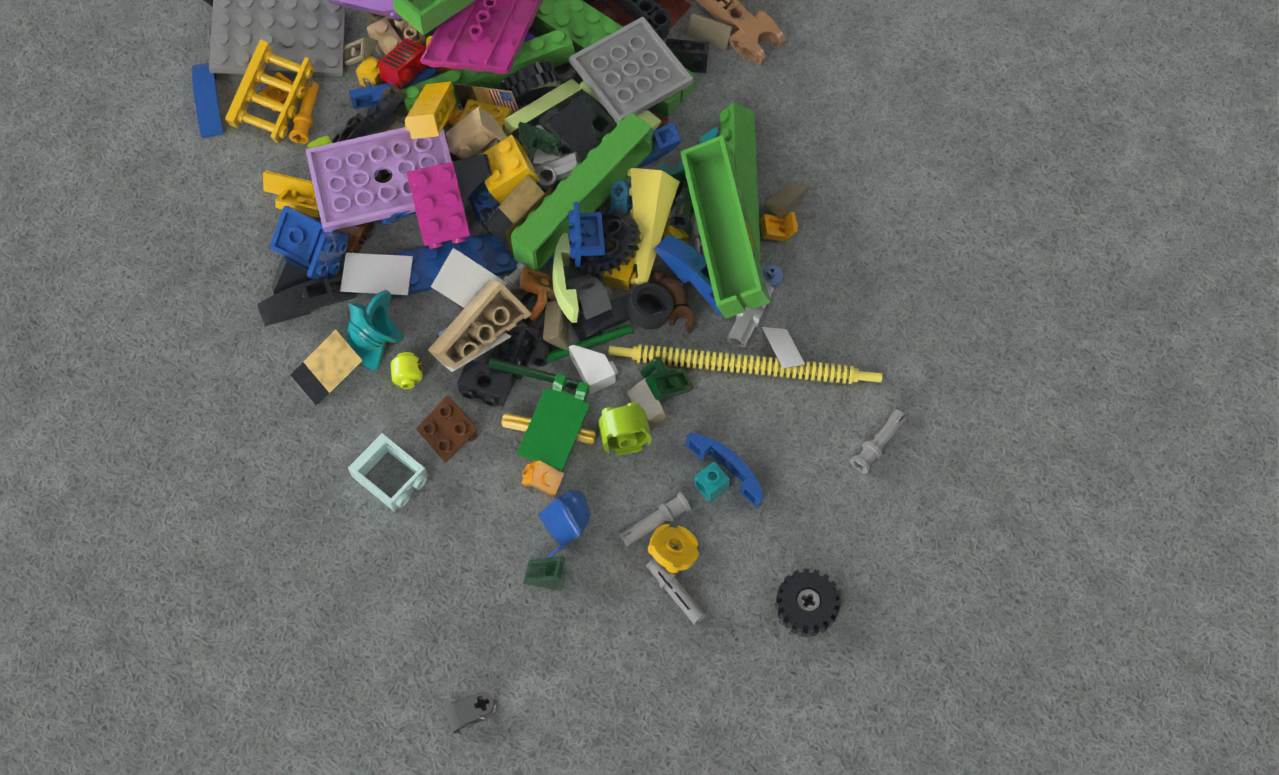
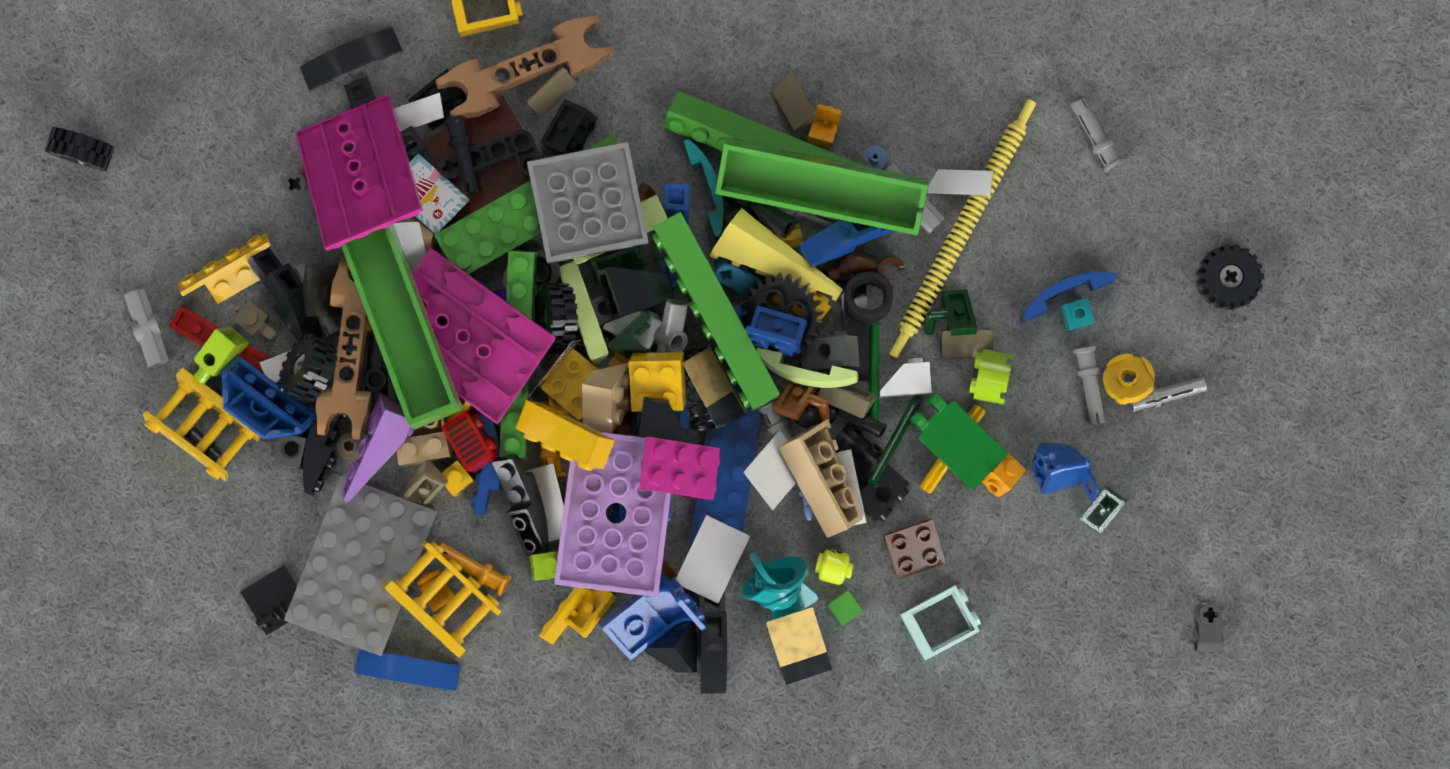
camera: 65 degrees left, 20 degrees up
(374, 394) = (845, 608): none -> bright green tile

